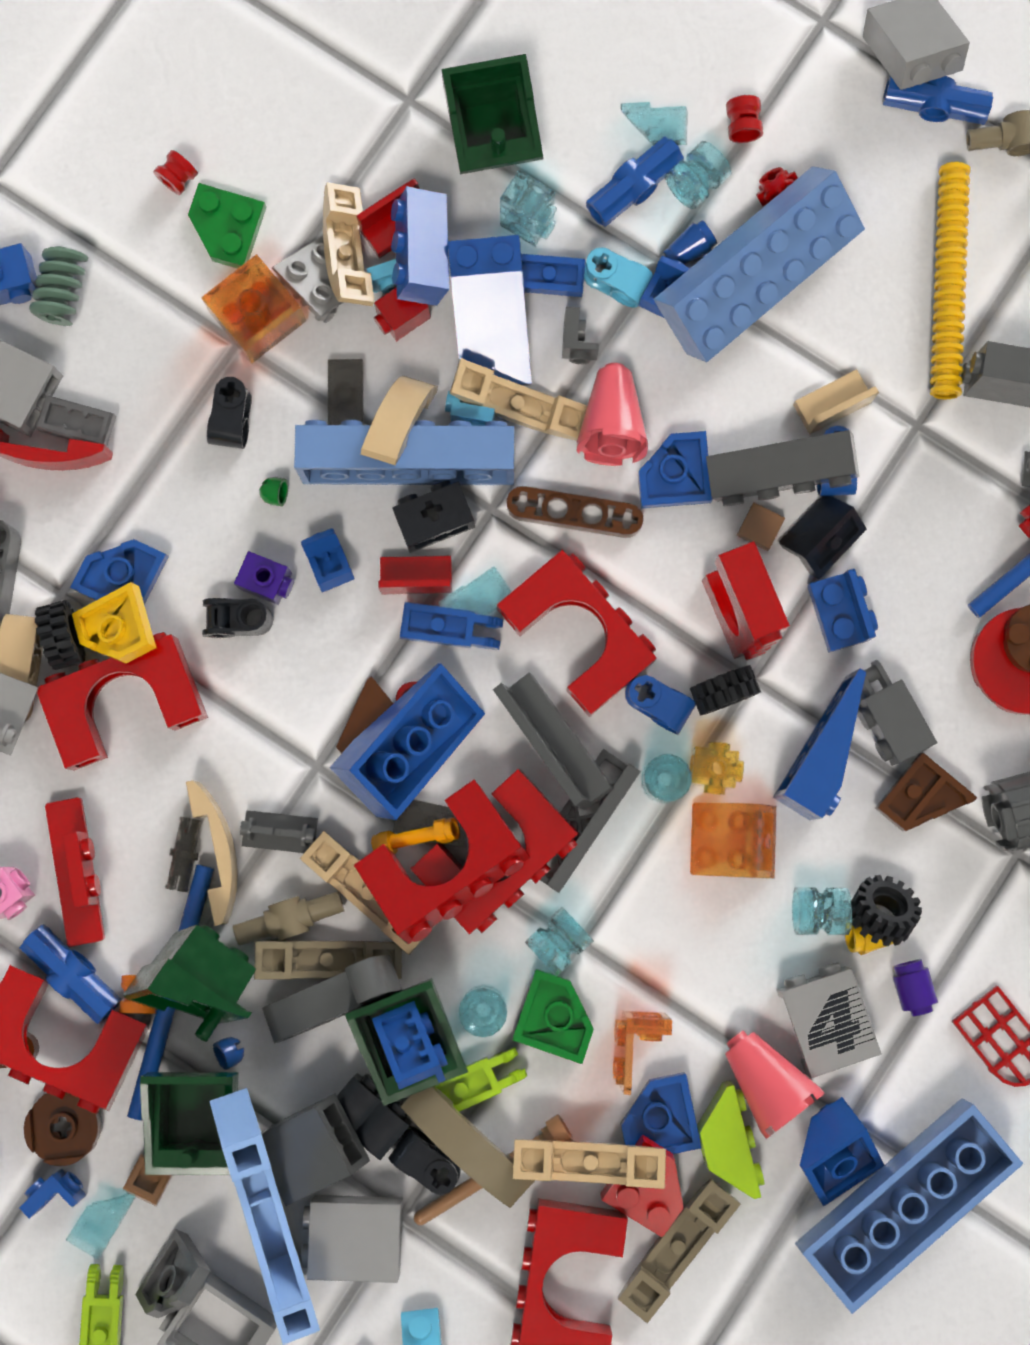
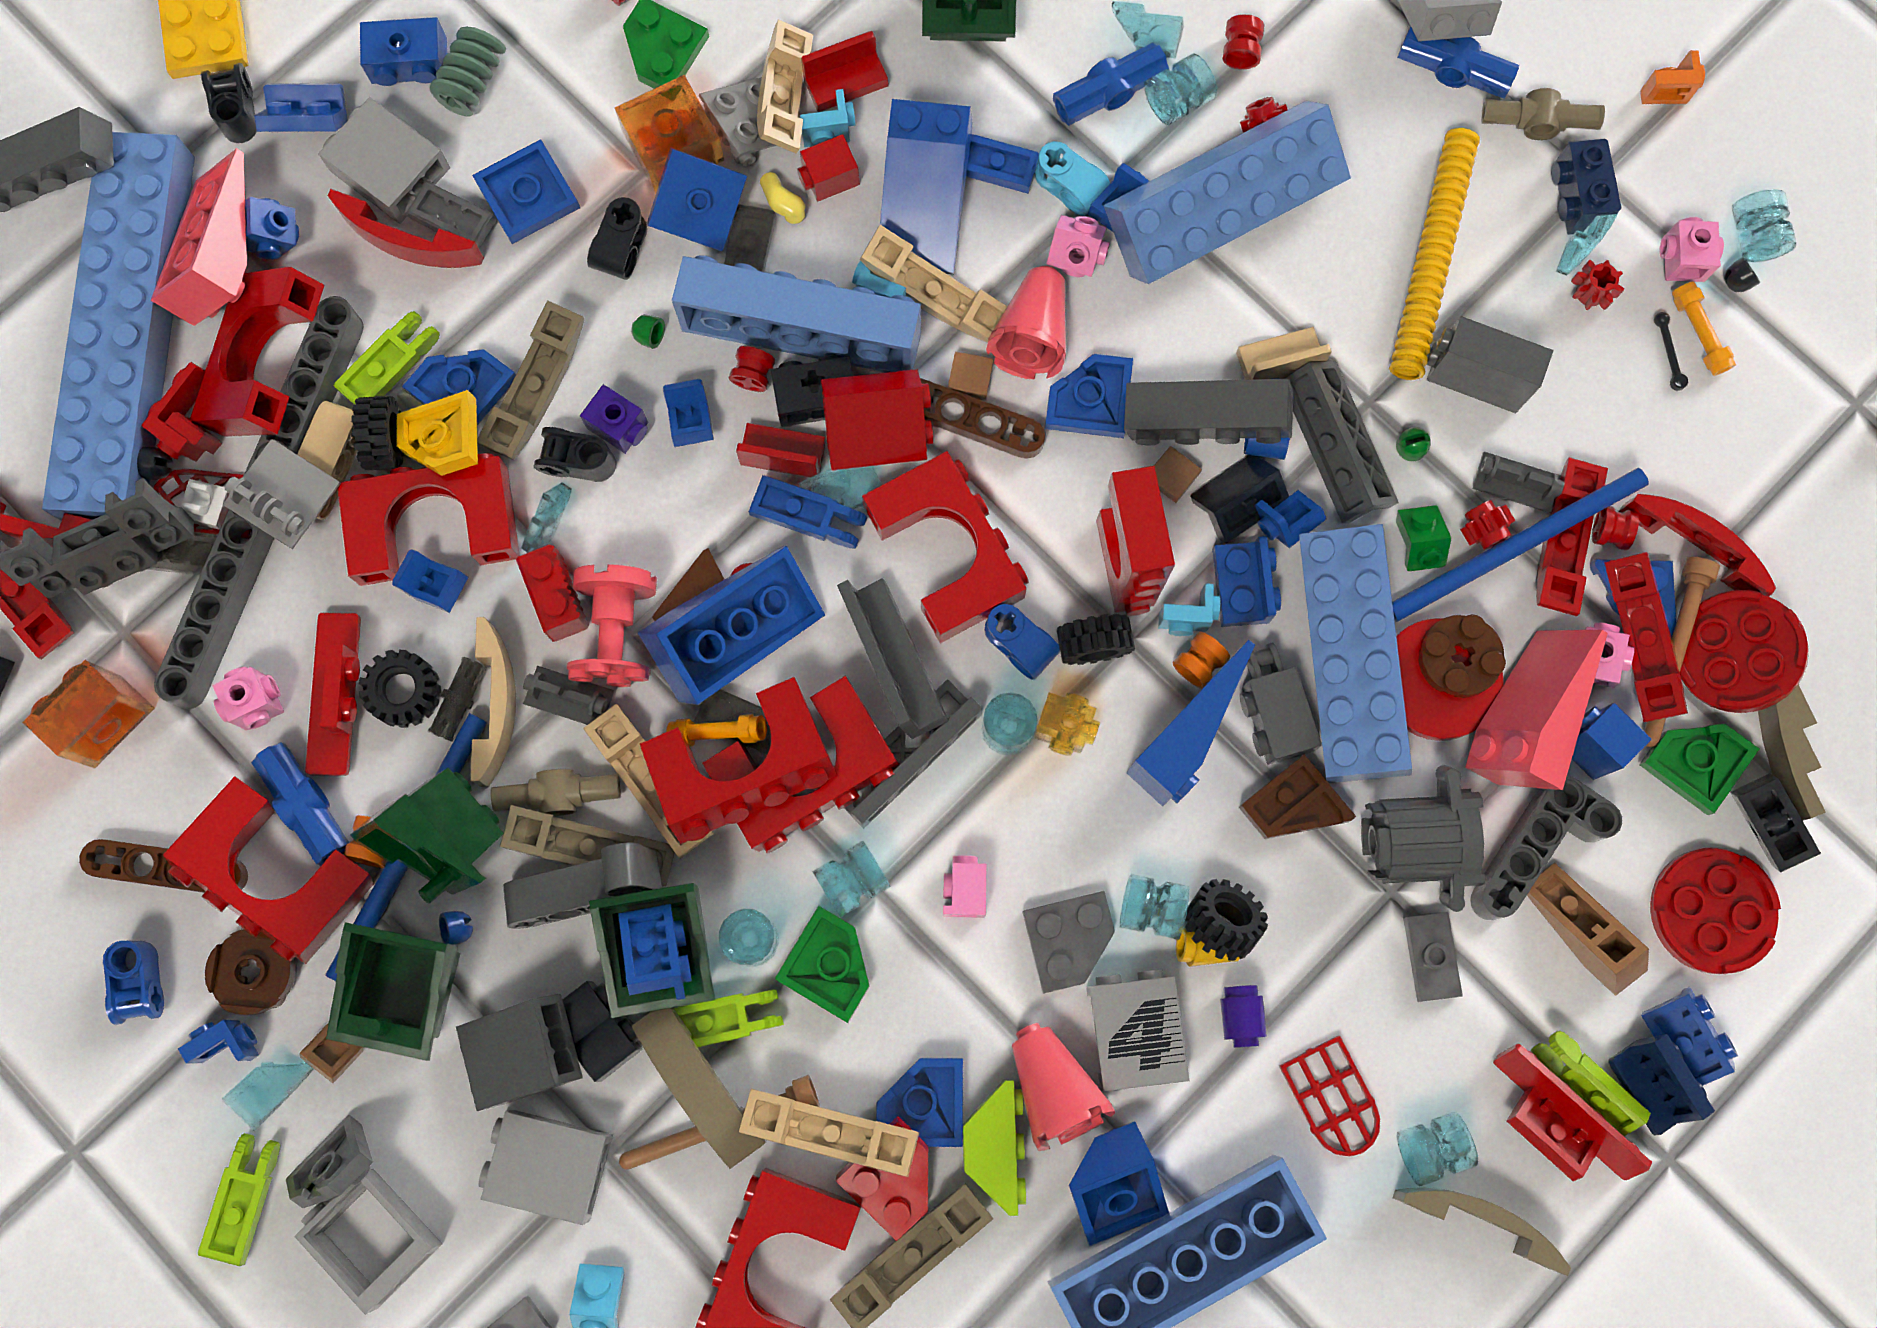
camera: 10 degrees right, 5 degrees down
(49, 567) = (387, 360): none -> lime hinge
(112, 845) = (382, 671): none -> black tyre
(136, 756) = (429, 581): none -> blue bracket
(137, 386) = (526, 191): none -> blue plate
(185, 559) = (535, 382): none -> dark tan slope
(225, 676) = (547, 517): none -> clear light blue slope
(245, 745) = (552, 593): none -> red brick
(264, 1215) = (441, 1042): light blue arch -> none
(292, 365) = (696, 199): none -> blue plate
(303, 750) = (612, 610): none -> coral piece
(366, 348) = (782, 200): none -> light yellow arm
(374, 508) = (752, 369): none -> red wheel
(396, 417) = (793, 268): tan slope -> none
(420, 246) = (862, 101): brick -> none
(421, 1159) = (640, 1091): black piece -> none
(494, 534) = (876, 419): none -> red brick
(528, 208) = (988, 85): clear light blue brick -> none
(566, 473) = (971, 374): none -> medium nougat tile
(573, 332) = (1008, 239): dark grey bracket -> none
(637, 338) = (1078, 246): none -> bright pink brick
(649, 1027) = (929, 993): clear orange bracket -> none
(658, 928) = (966, 888): none -> bright pink brick
(692, 243) = (1159, 158): blue cone -> none
(733, 840) = (1072, 808): clear orange bracket -> none
(753, 952) = (1068, 939): none -> flat silver plate
(796, 655) = (1185, 619): none -> medium azure bracket
(818, 687) = (1201, 659): none -> orange wheel
(870, 547) = (1290, 518): none -> blue bracket
(895, 468) = (1336, 441): none -> dark grey fence
(950, 656) = (1355, 654): none -> medium blue brick
(966, 463) = (1416, 450): none -> green hinge
(988, 538) = (1424, 537): none -> green bracket

